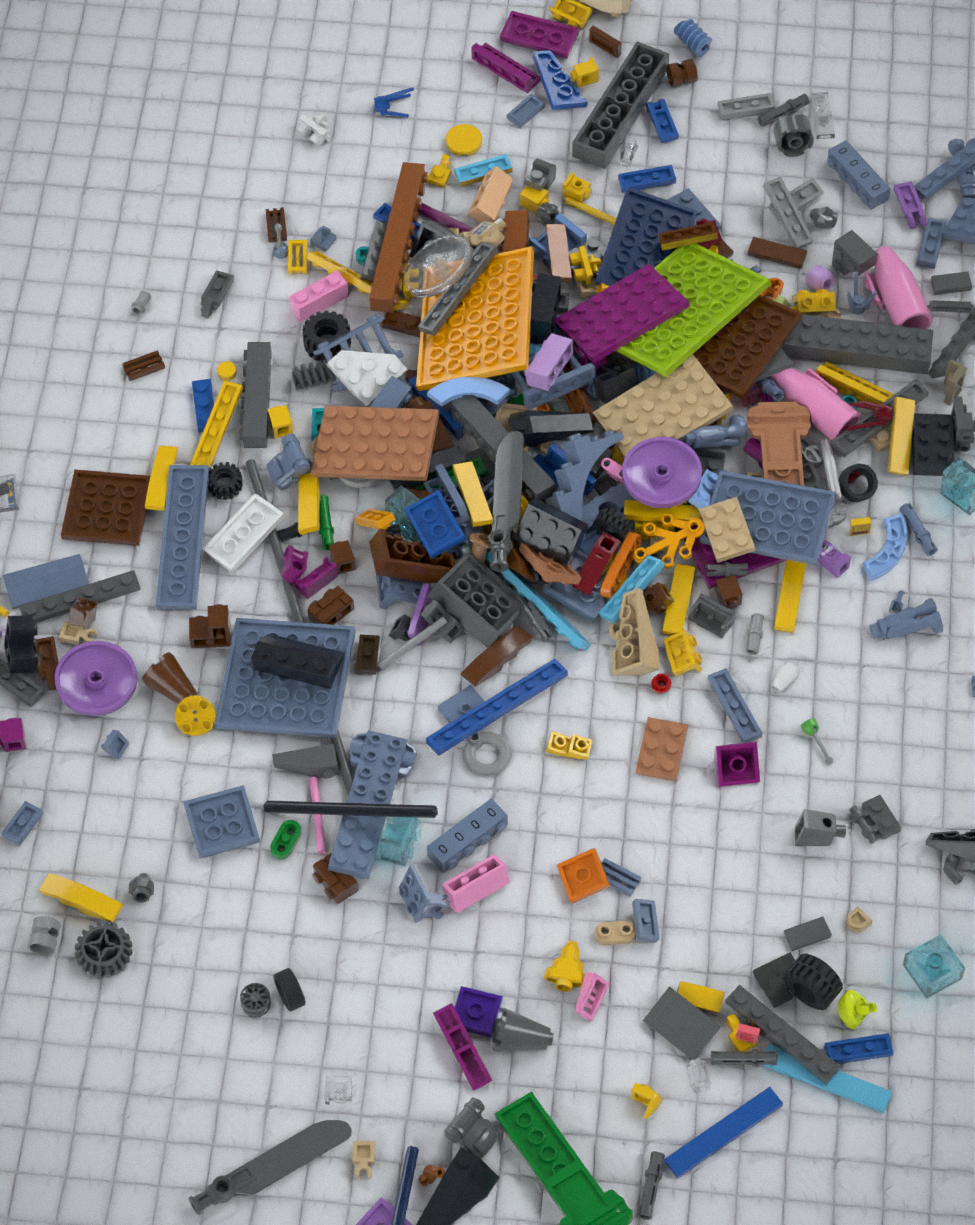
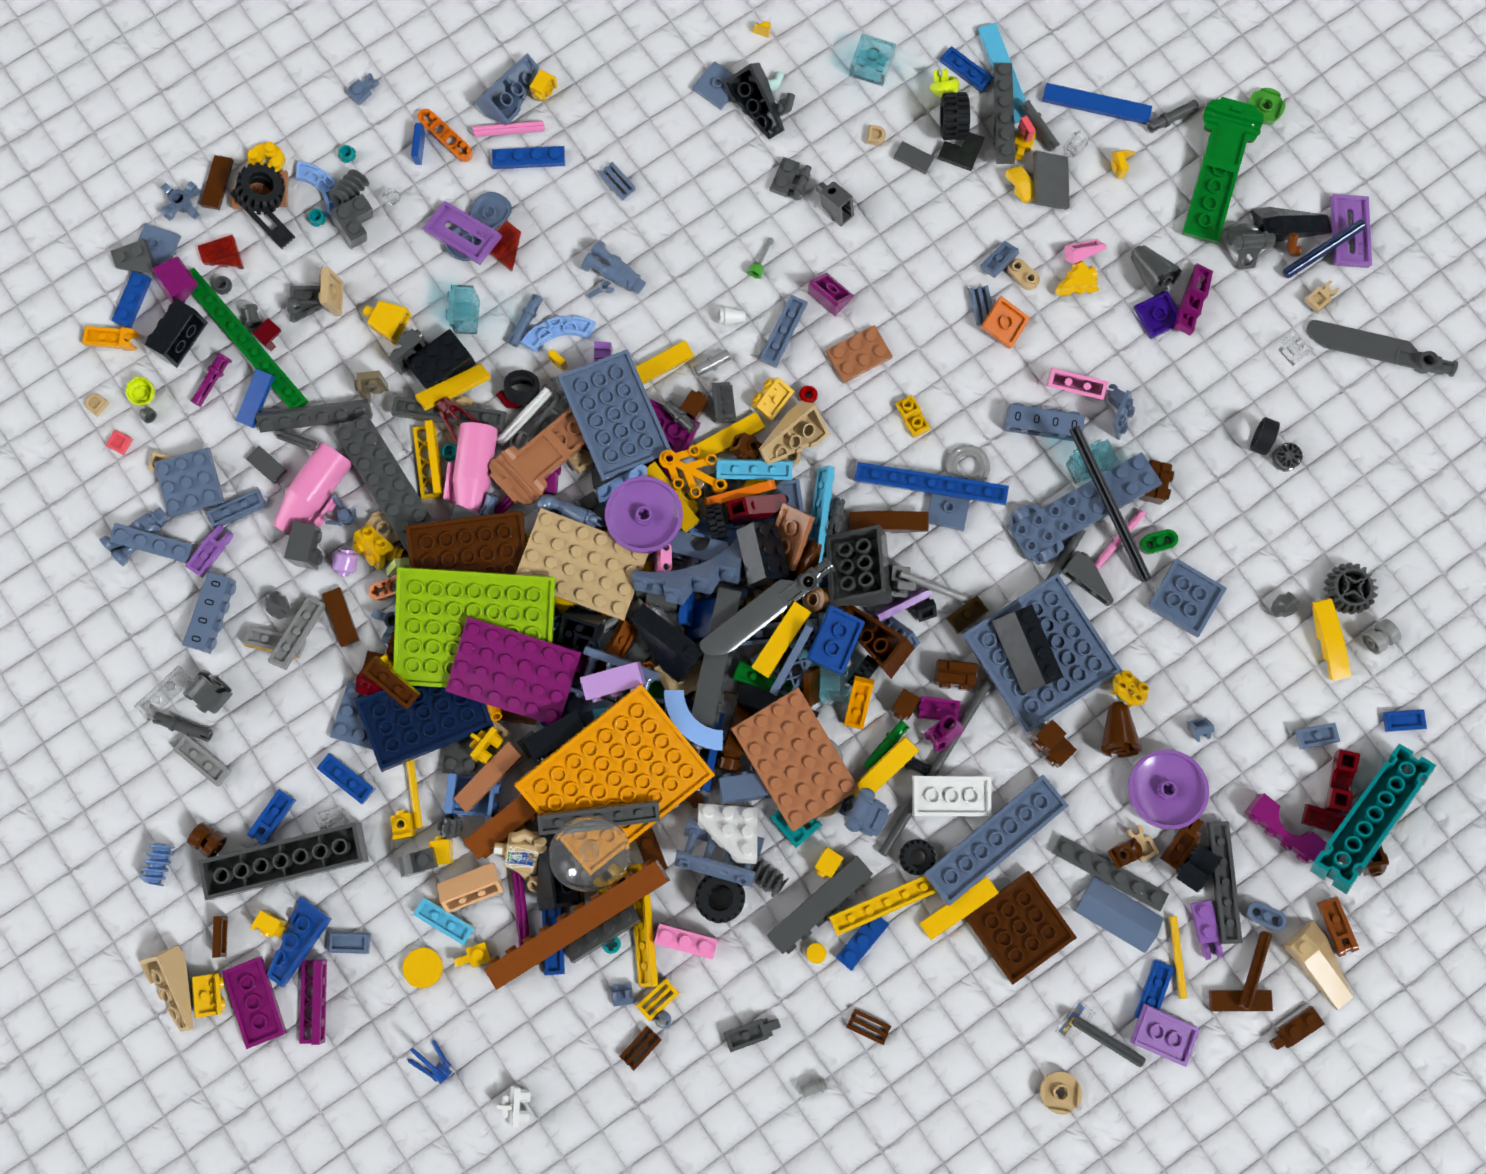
camera: 130 degrees left, 20 degrees up
(727, 529) = (650, 434): tan plate -> none

